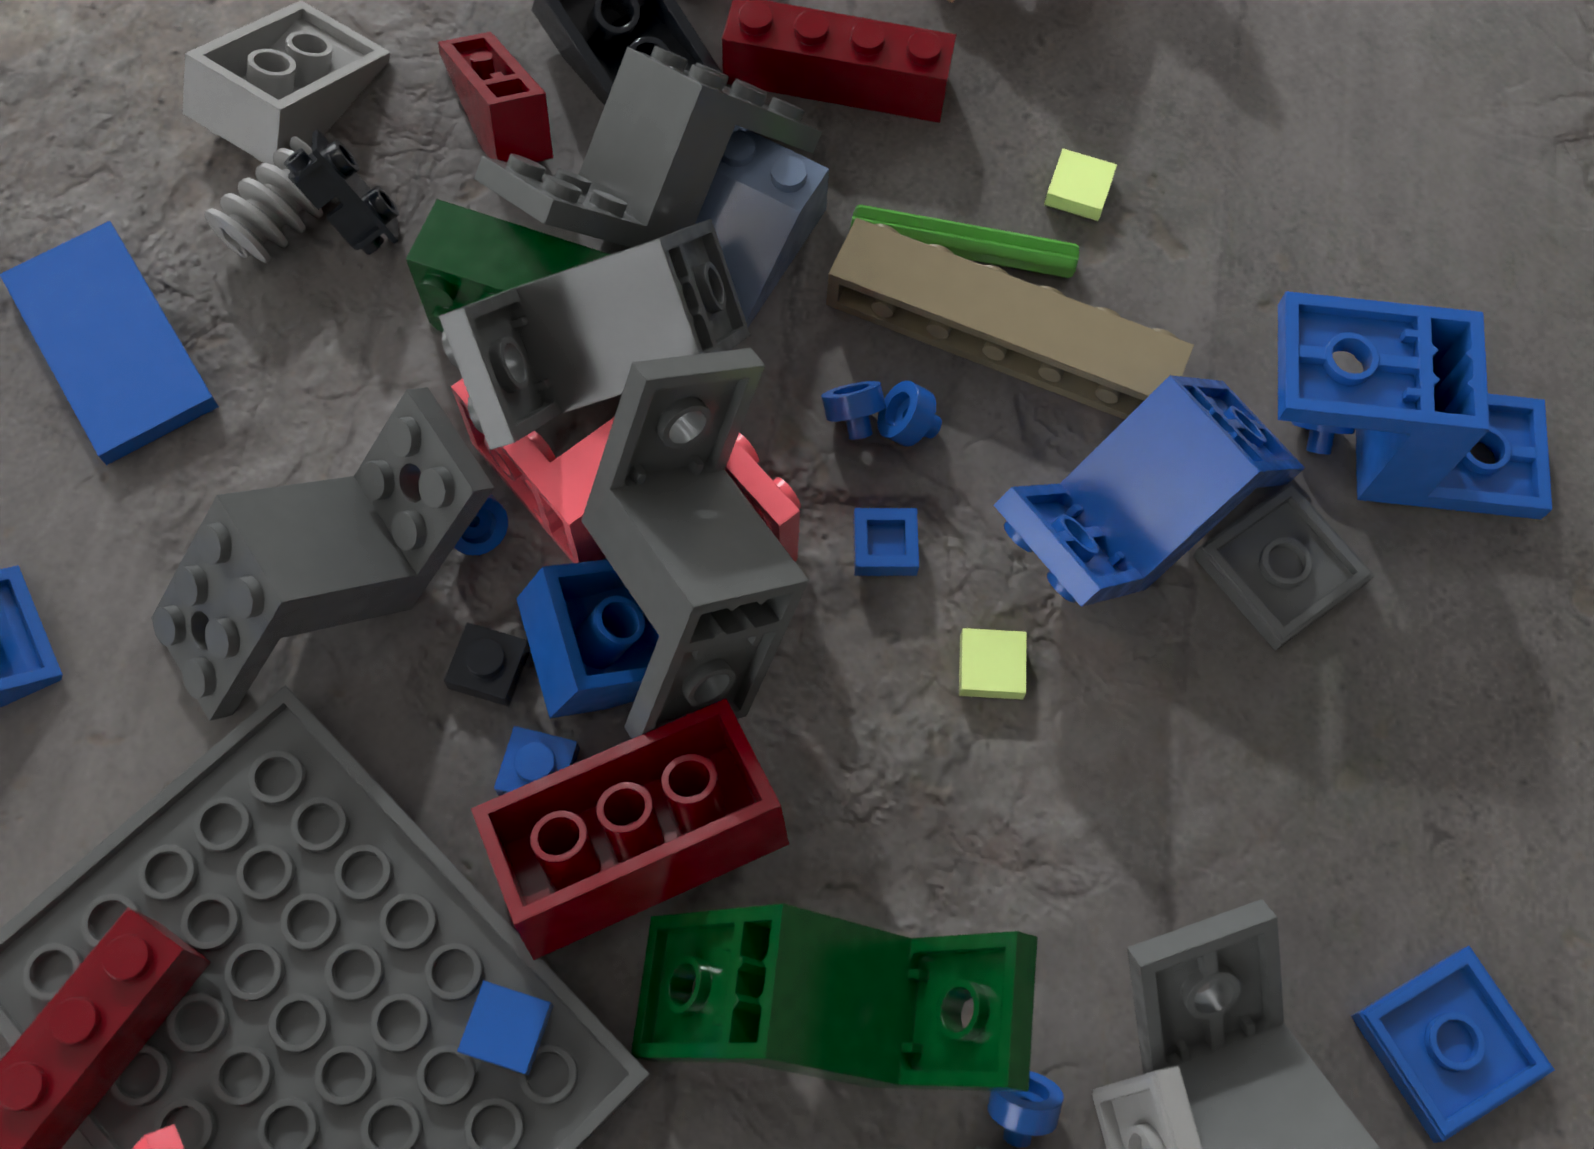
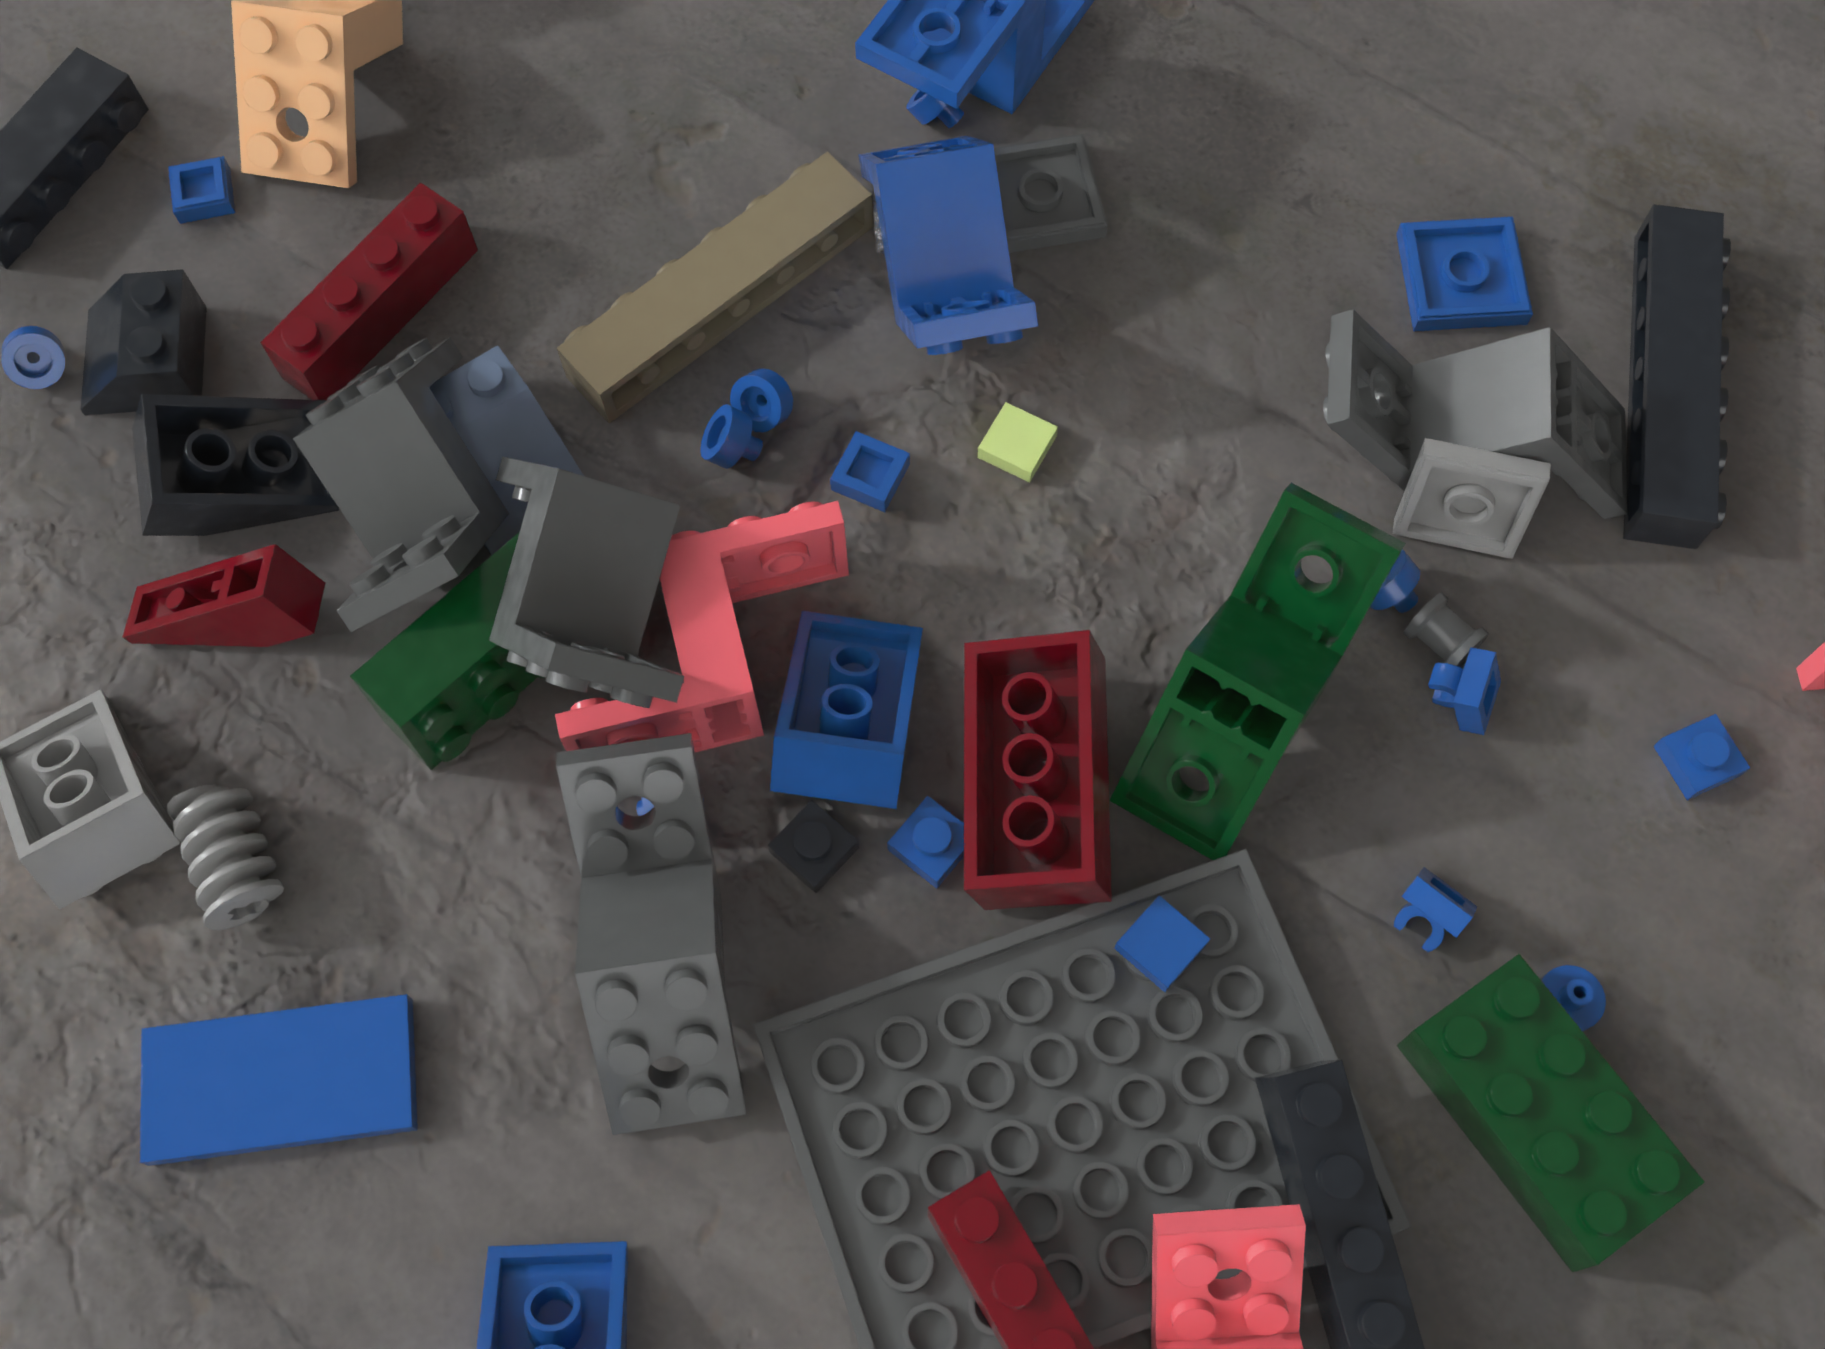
camera: 60 degrees left, 0 degrees up
(332, 174) = (240, 779): black hinge -> none
(690, 537) = (828, 590): dark grey bracket -> none
(980, 242) = (618, 277): bright green axle -> none
(1080, 184) = (612, 169): yellowish green tile -> none

